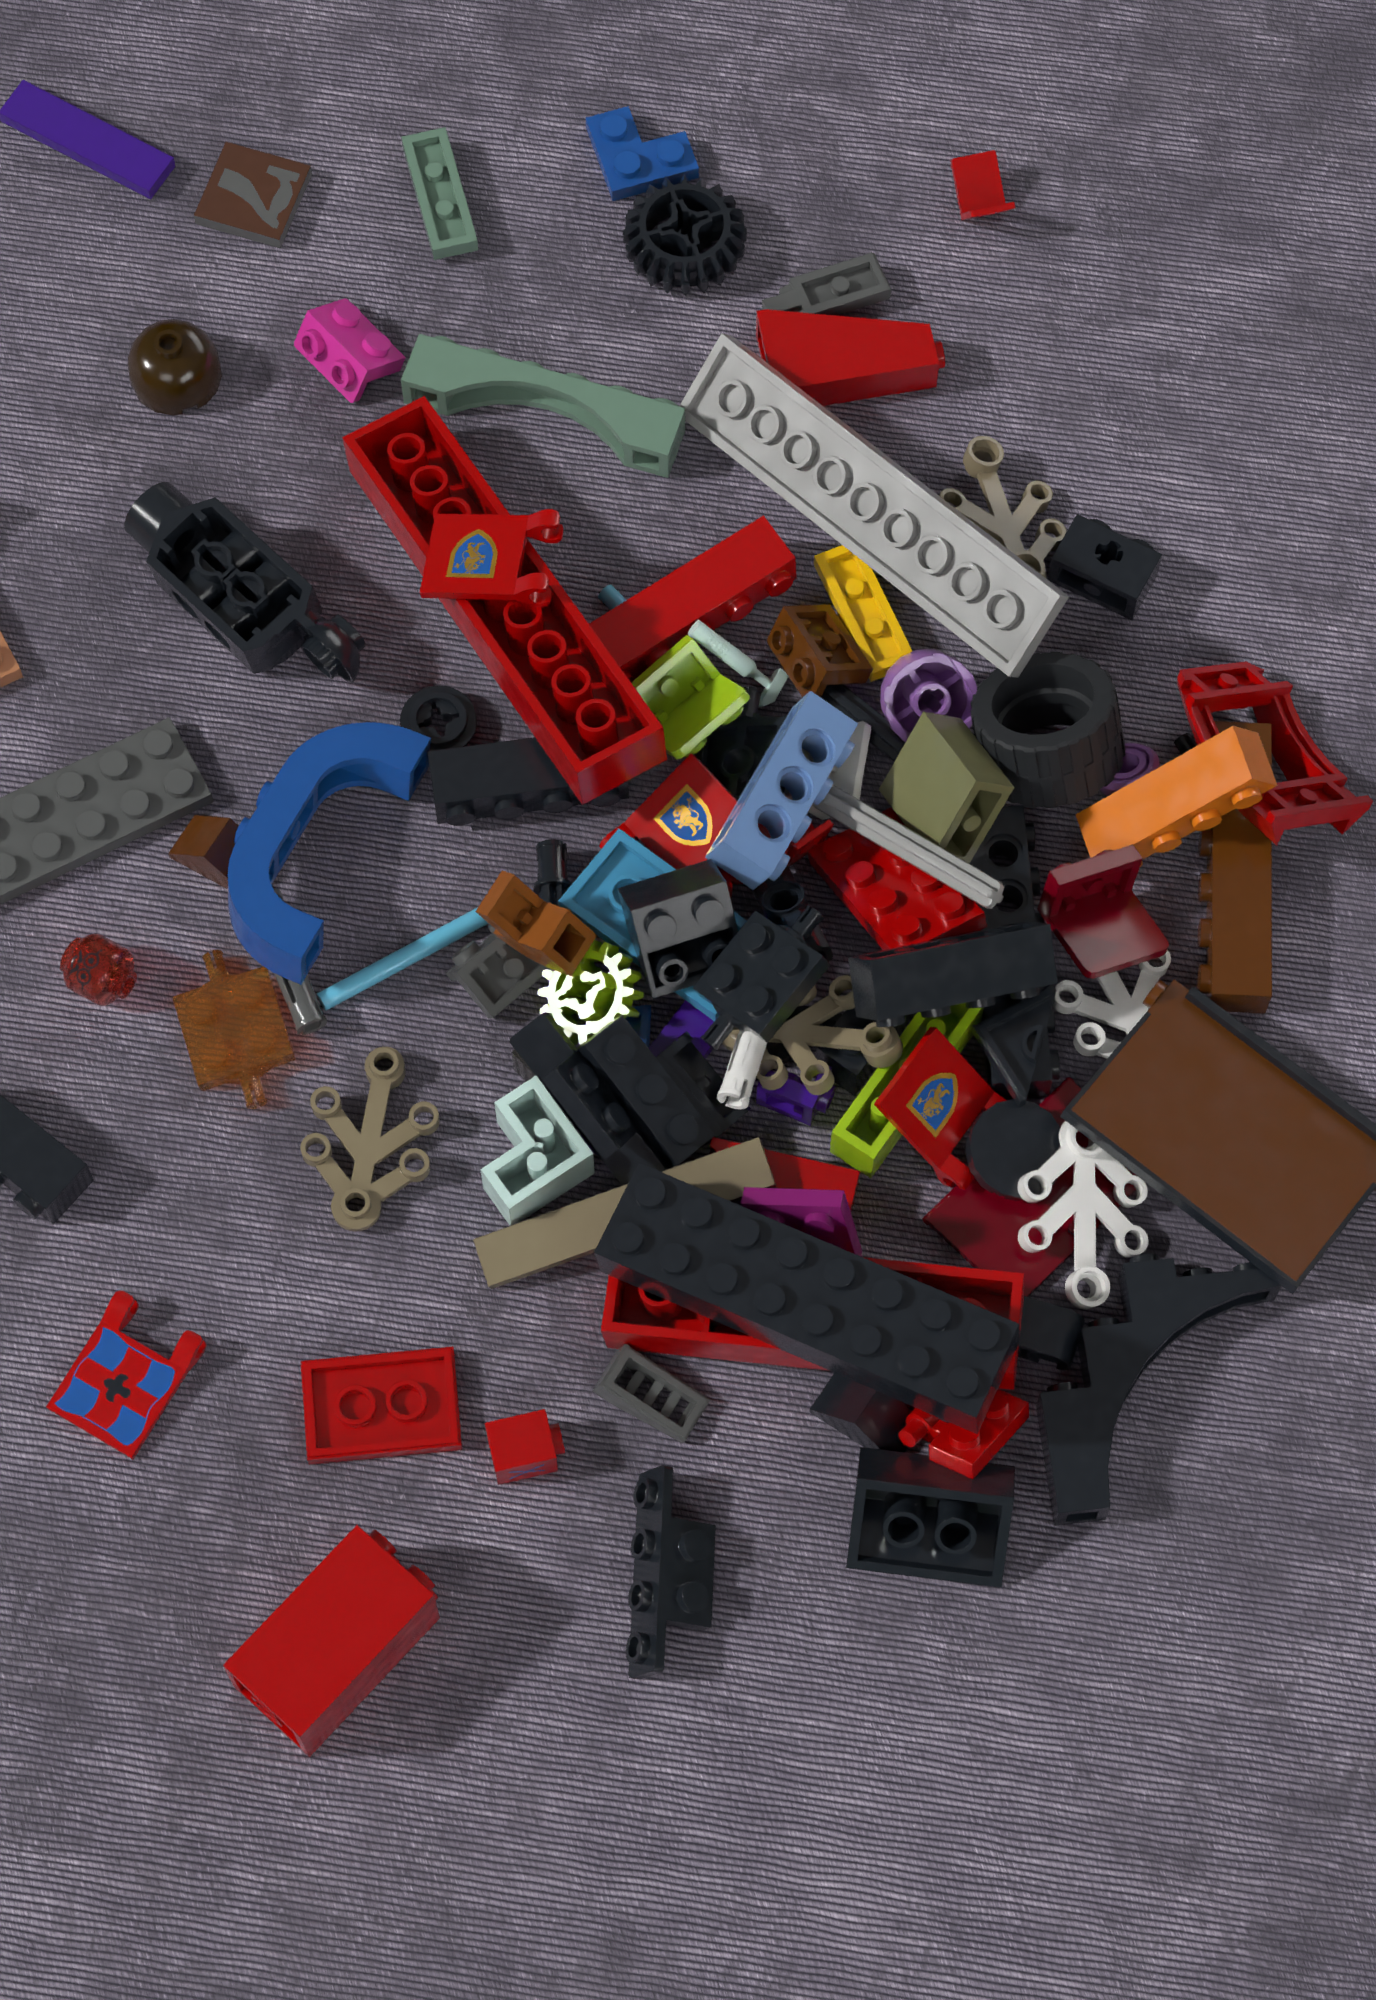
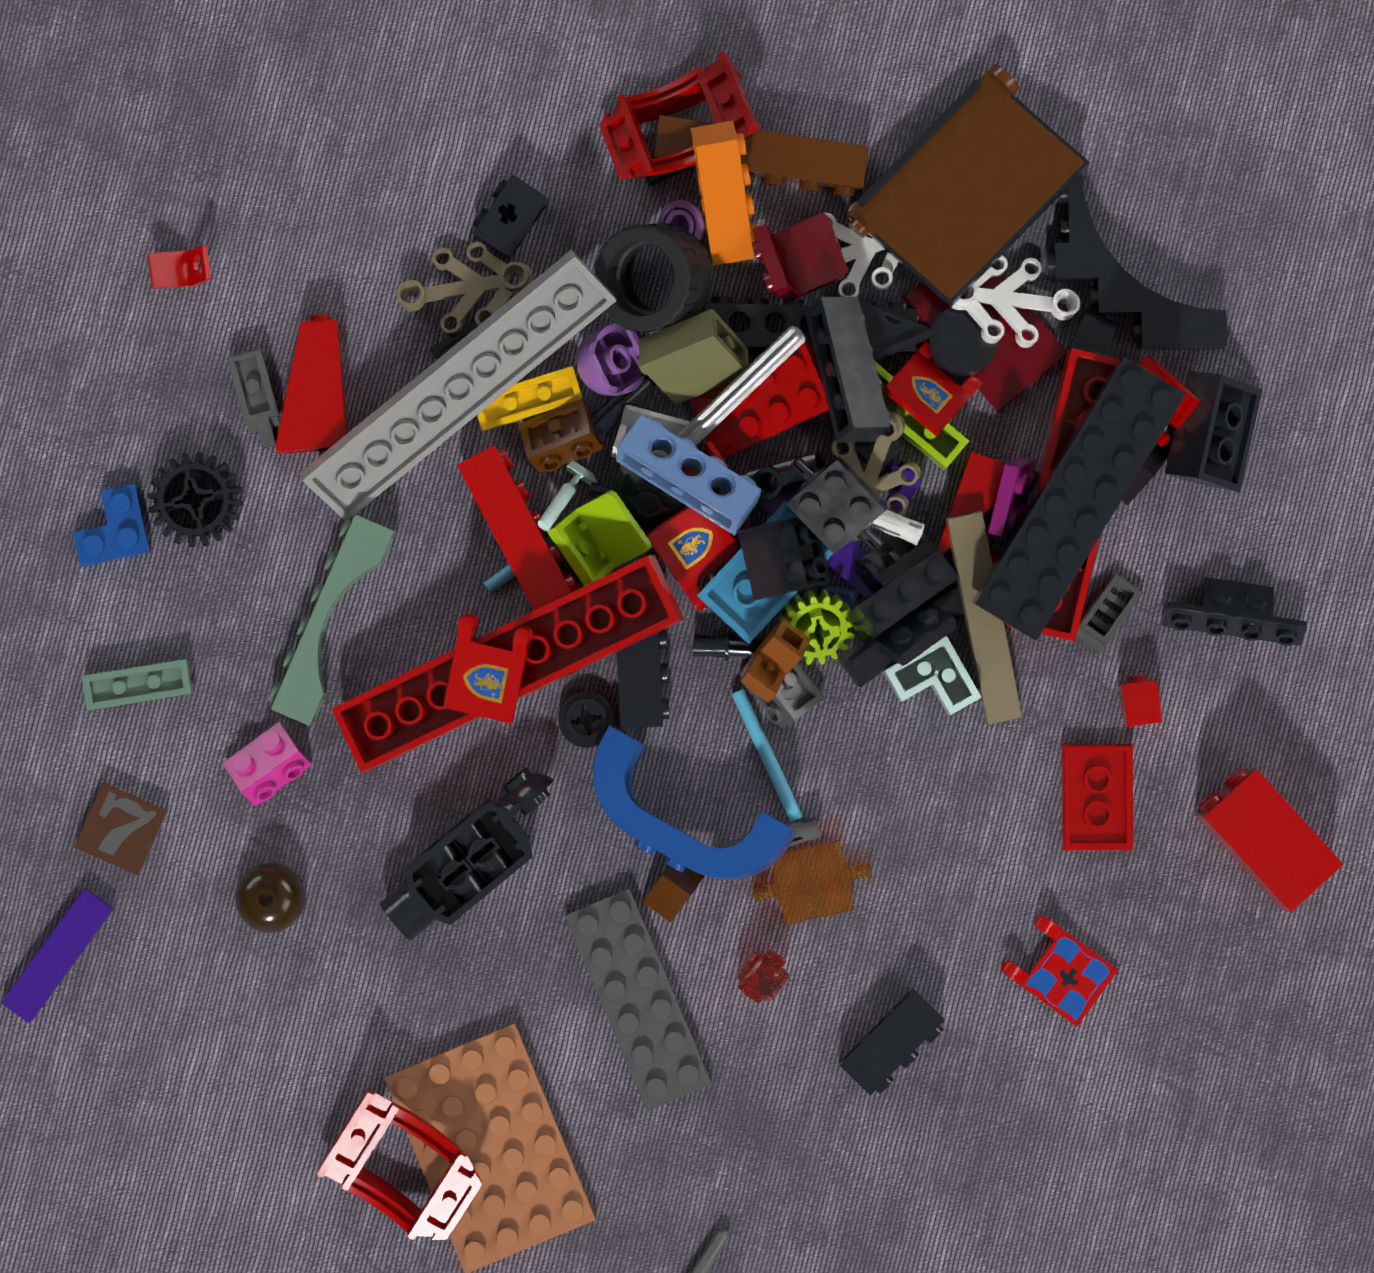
camera: 85 degrees left, 20 degrees up
(369, 1146) = (911, 793): dark tan plant -> none

